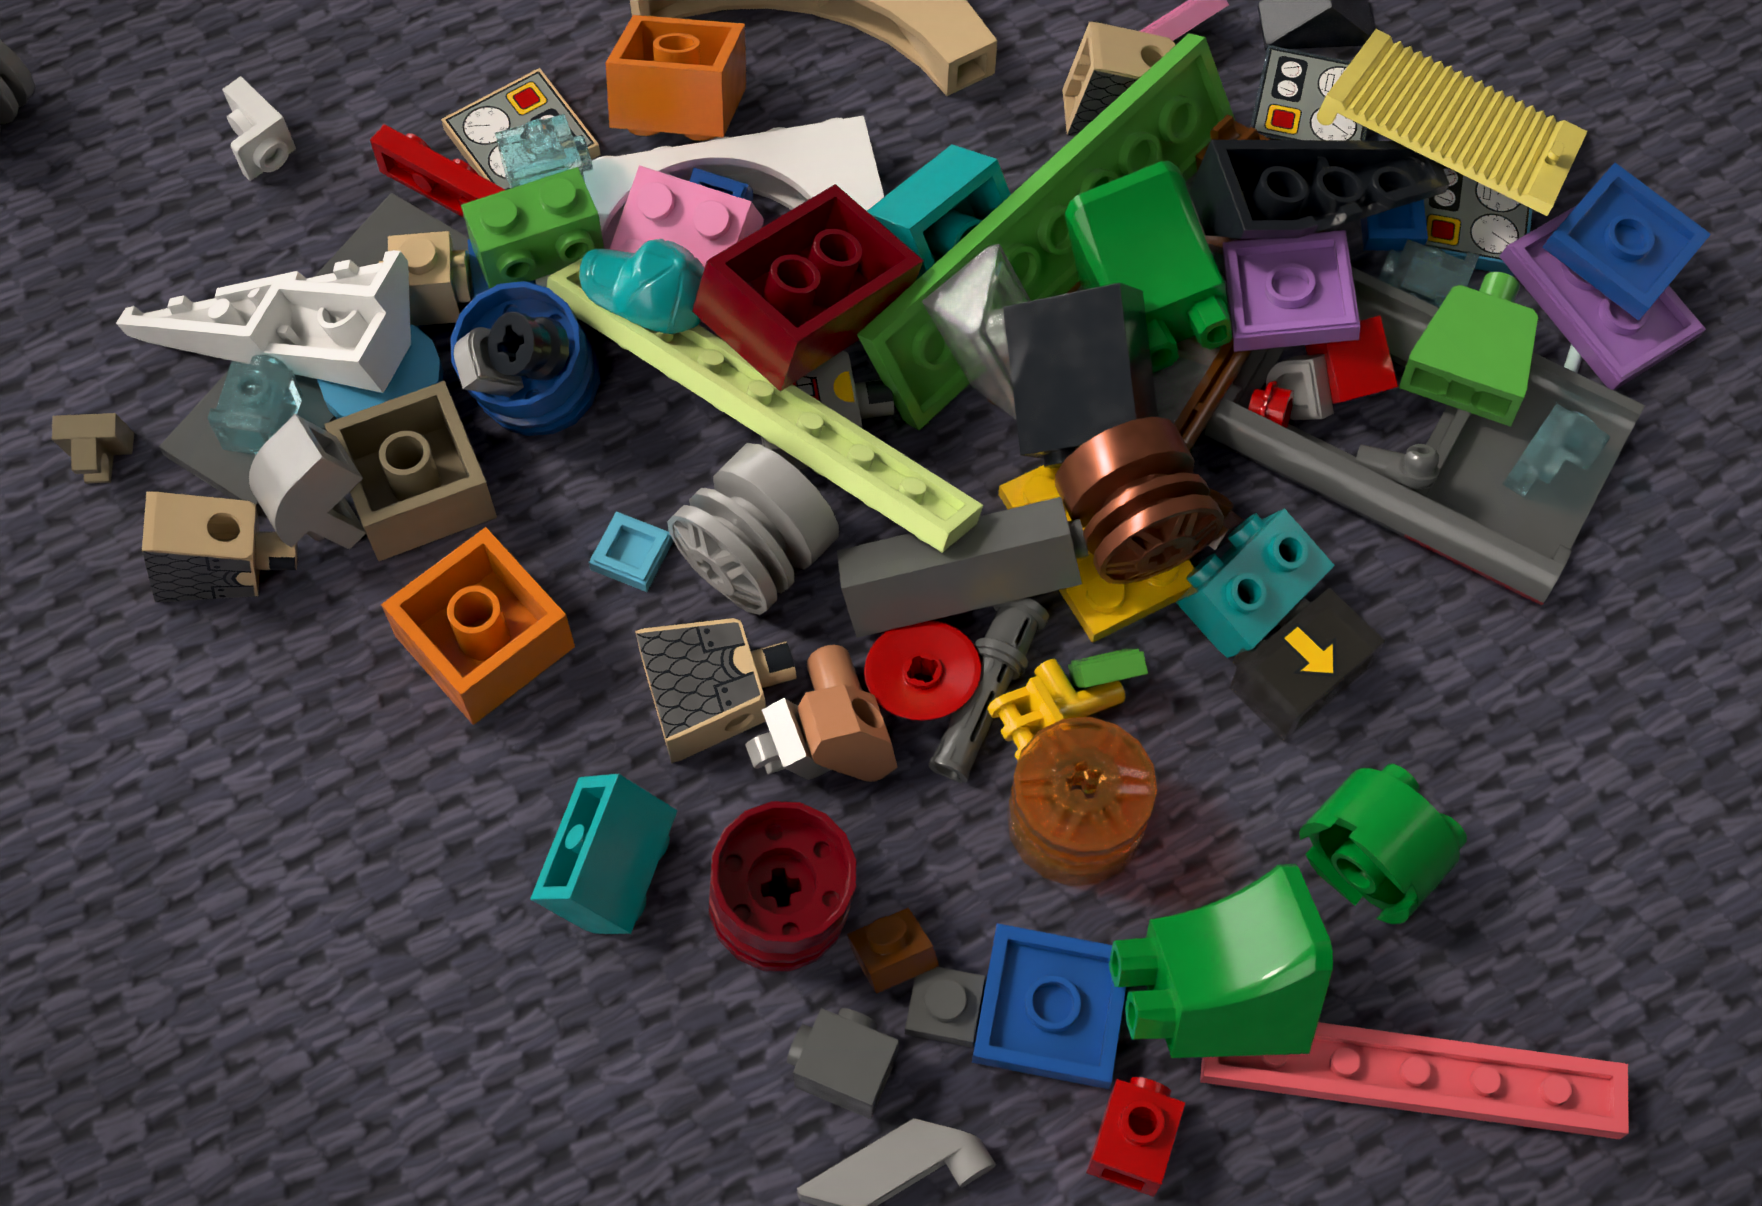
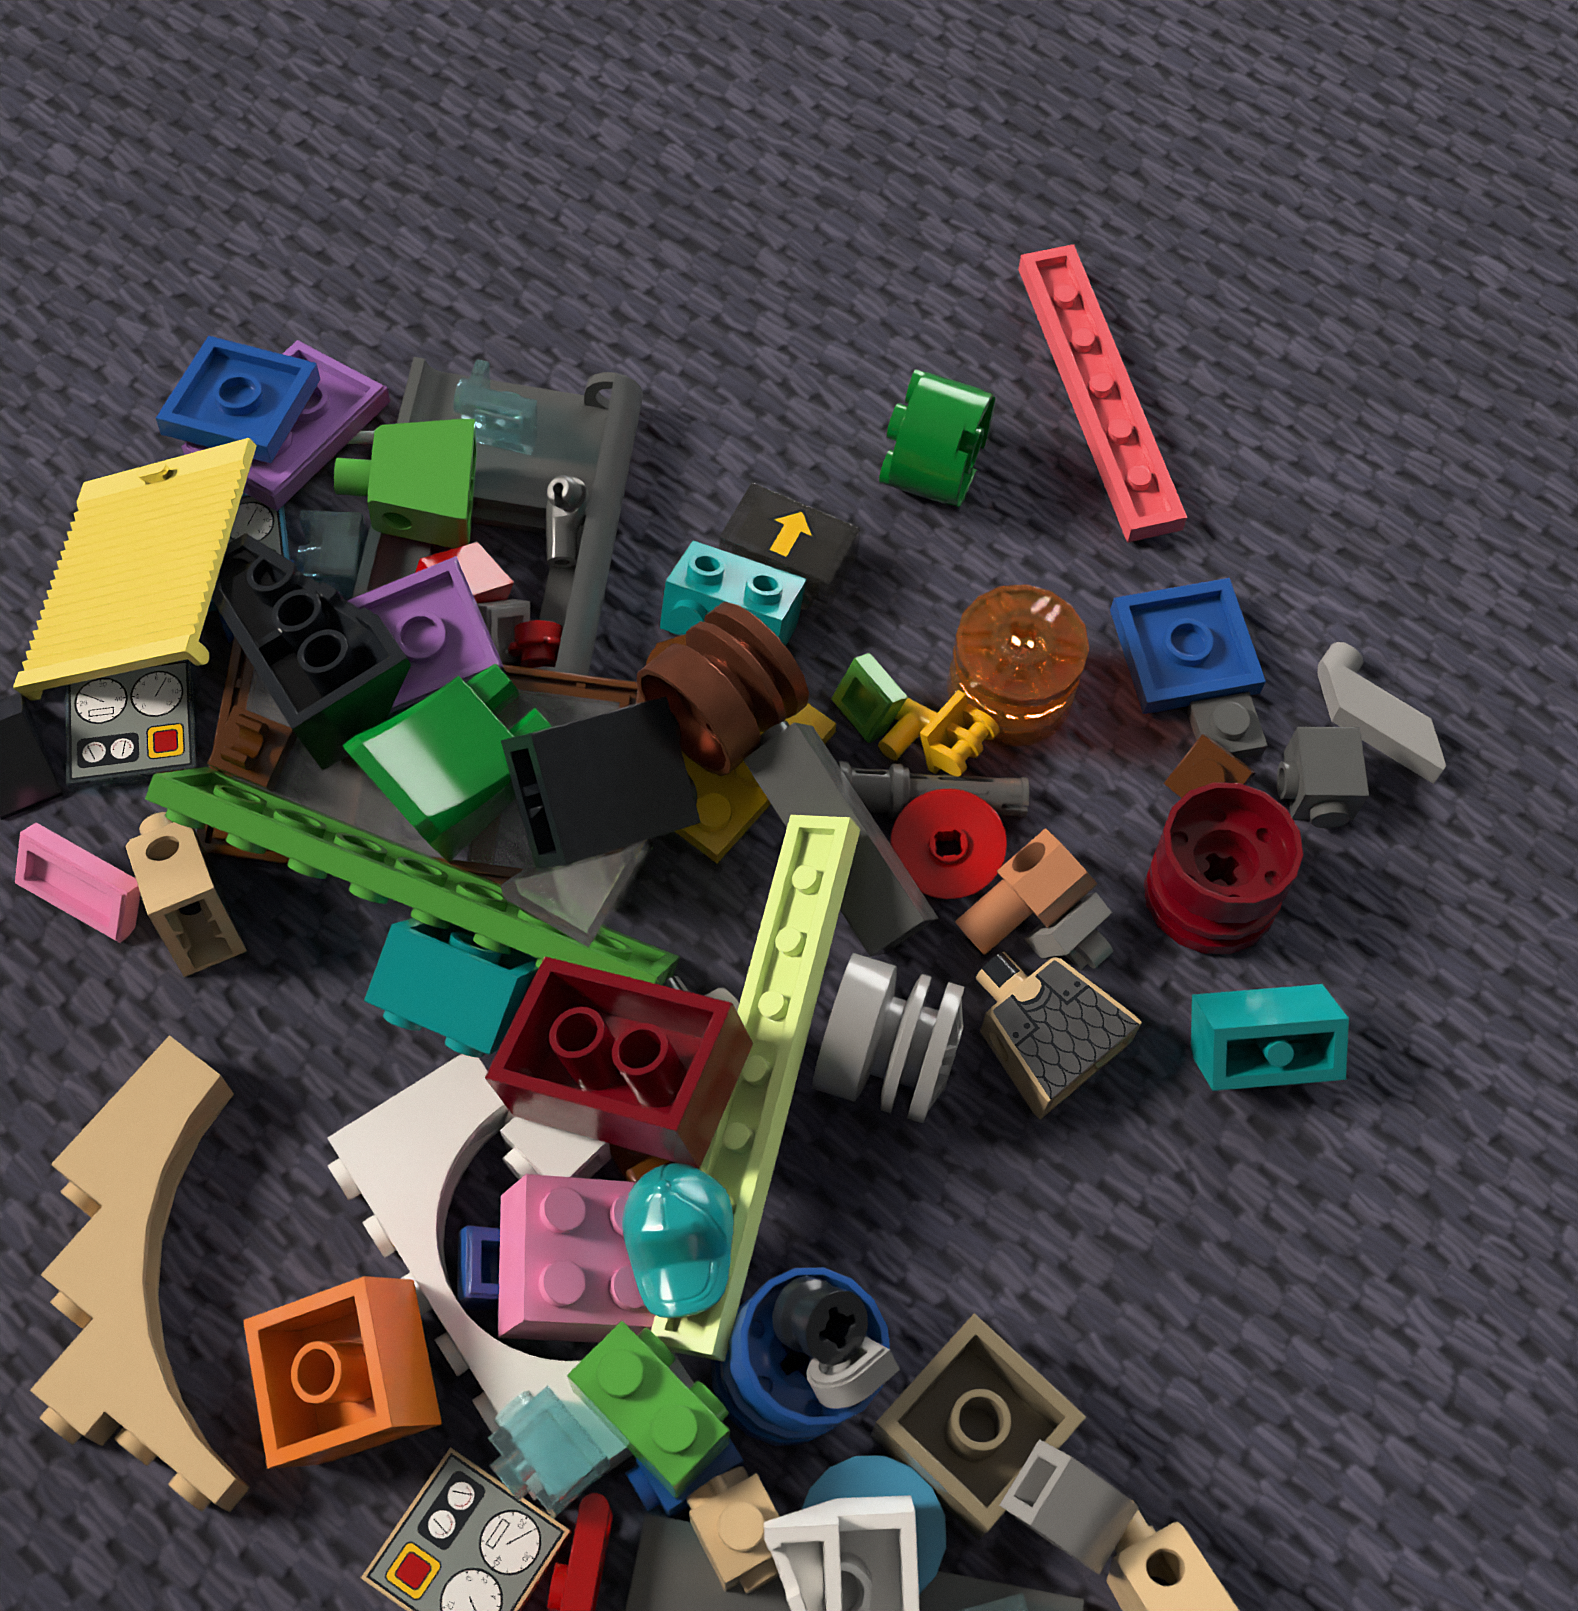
camera: 115 degrees left, 0 degrees up
(479, 625) = (1112, 1263): orange brick -> none
(631, 551) = (940, 1174): medium azure tile -> none
(1136, 1135) = (1259, 549): red brick -> none
(1231, 973) = (1109, 502): green hips -> none

